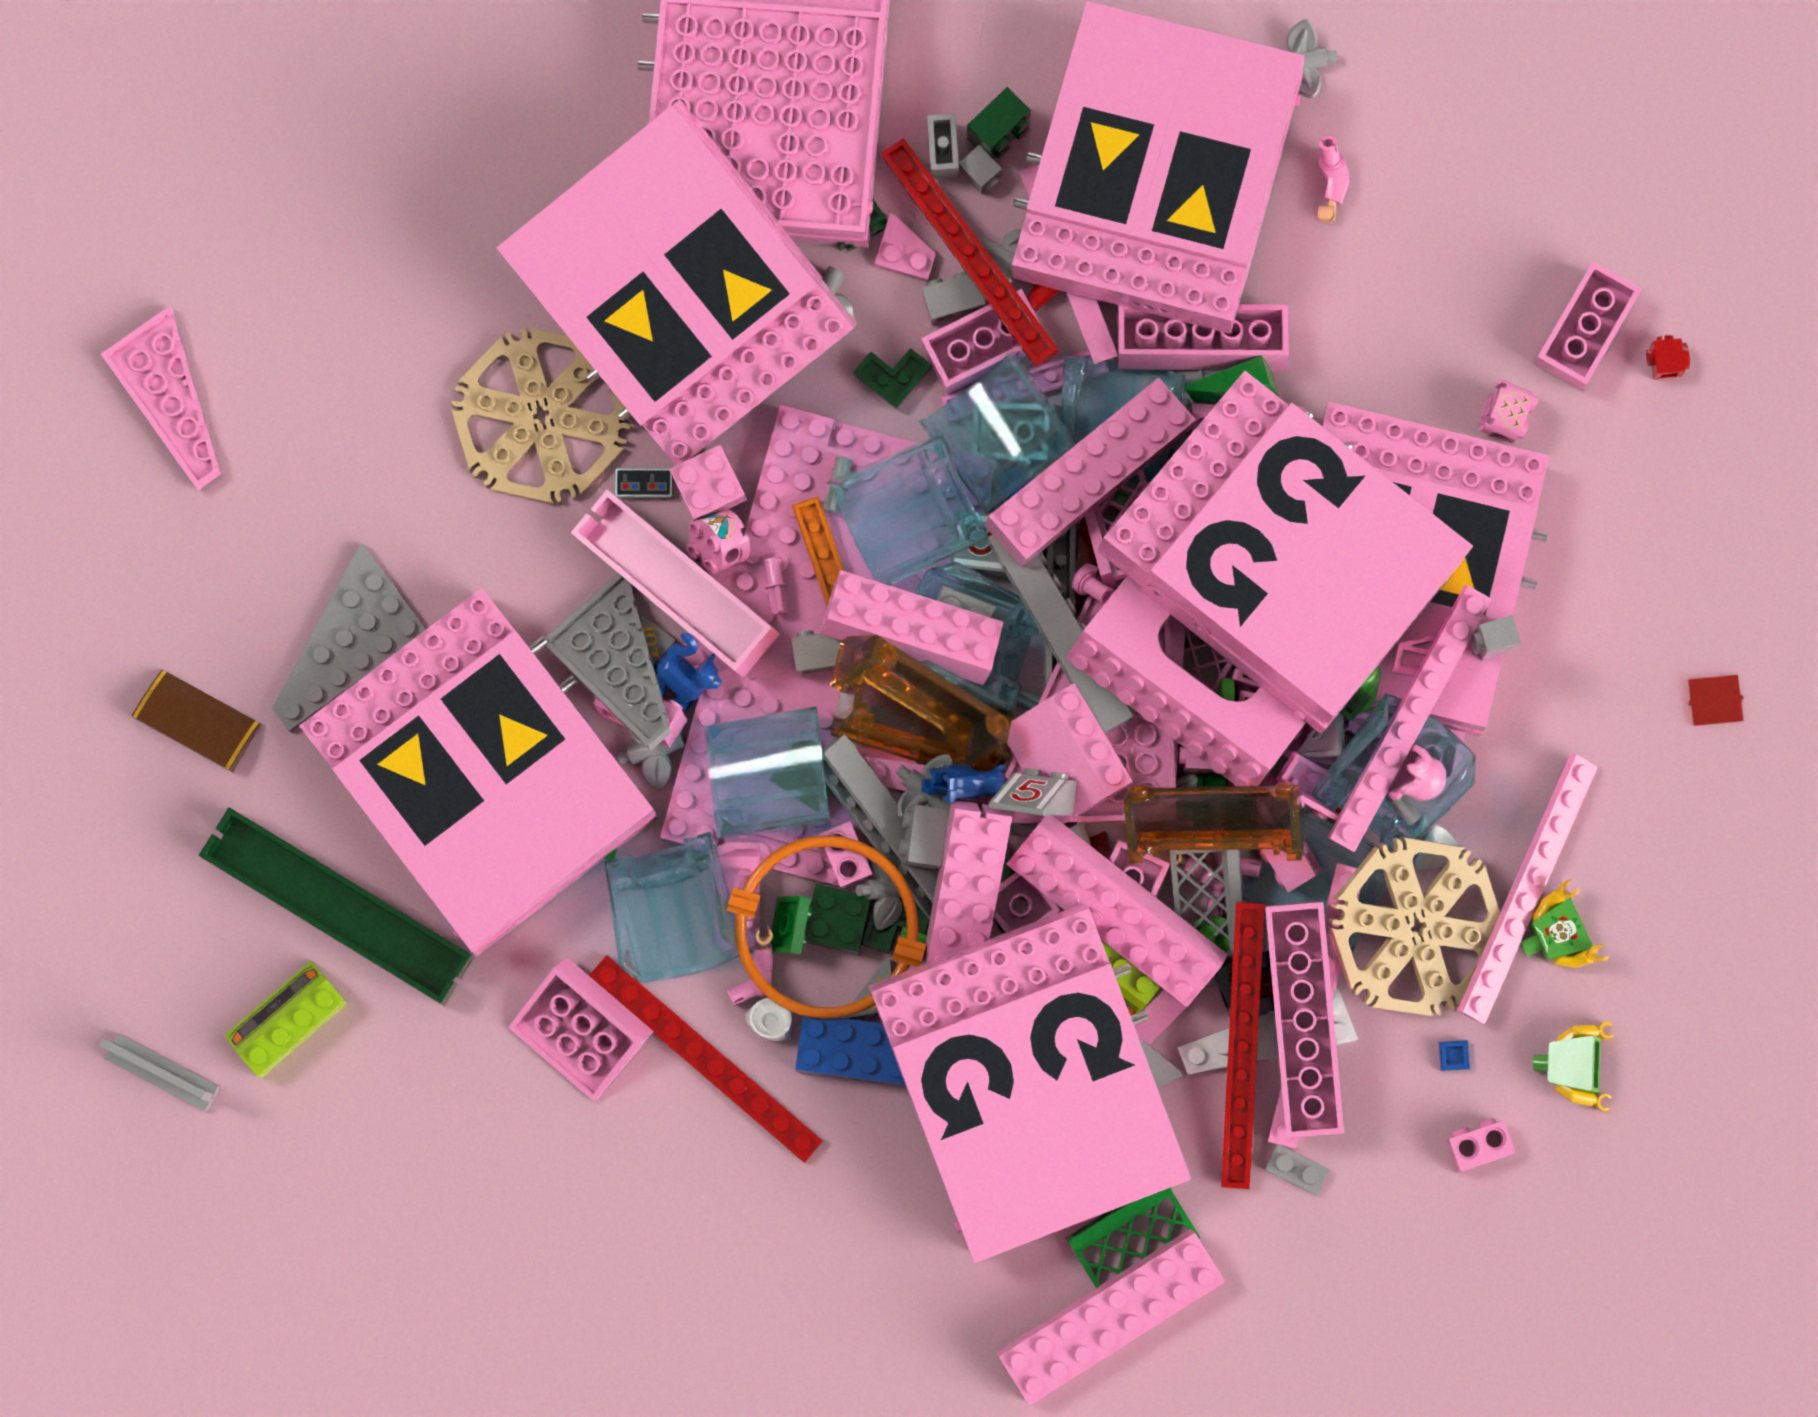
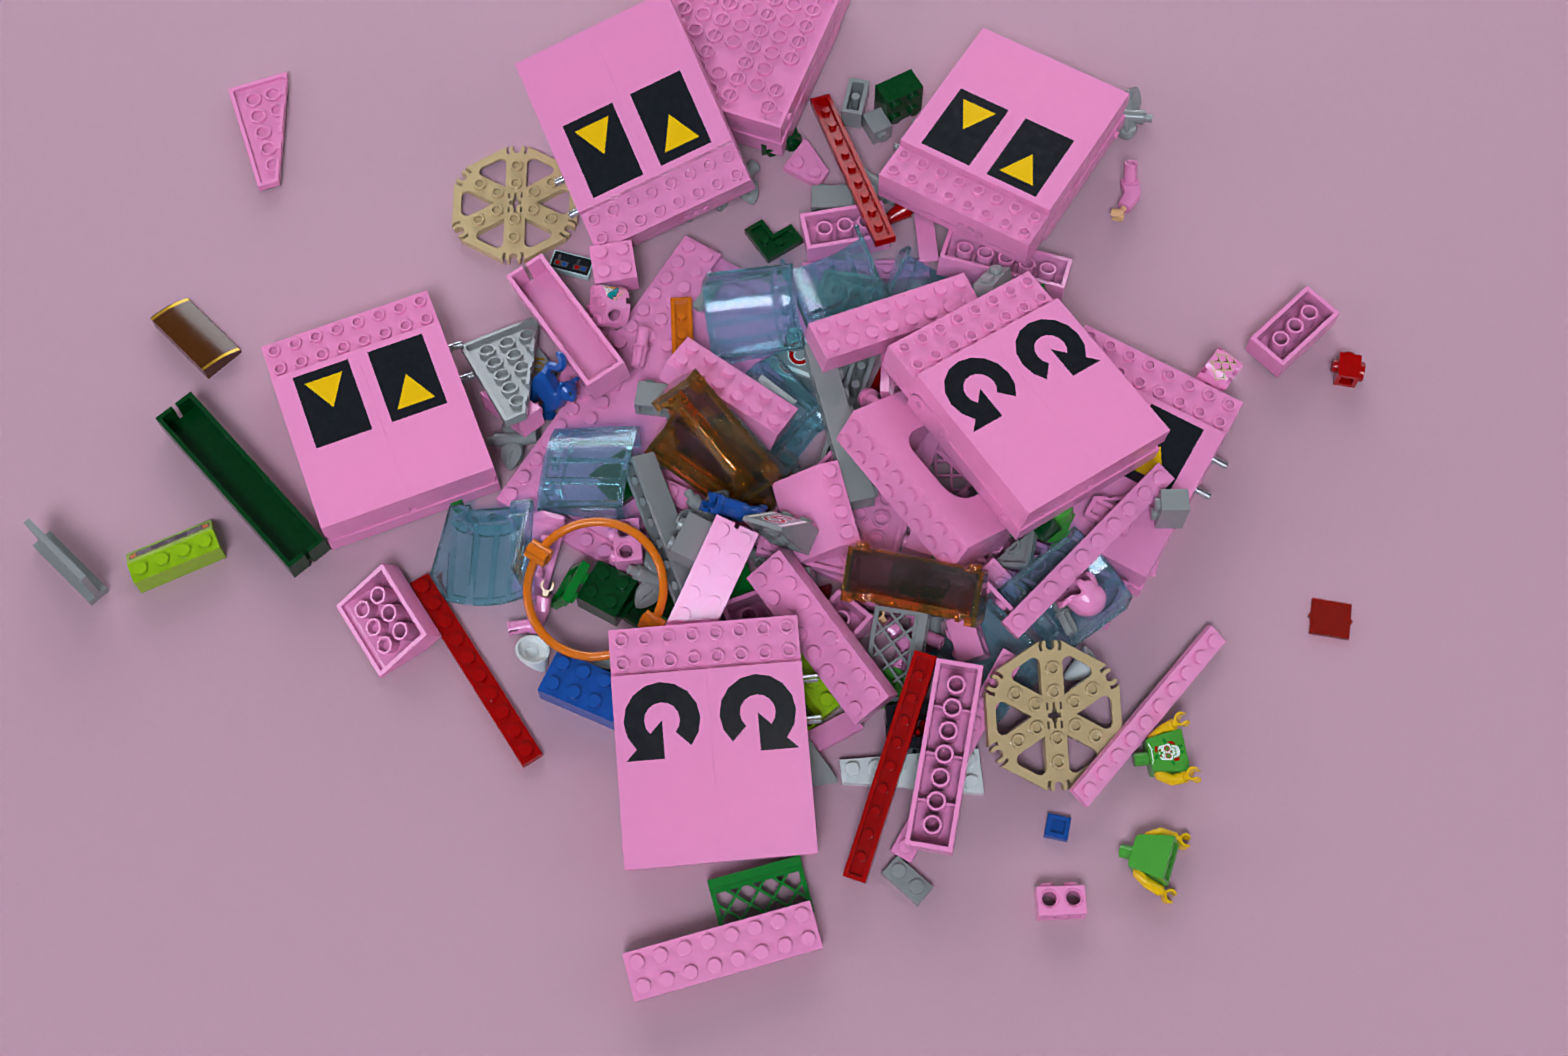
camera: 15 degrees right, 15 degrees down
(354, 635) = (335, 298): light grey wing -> none
(1200, 382) = (991, 279): none -> light grey brick

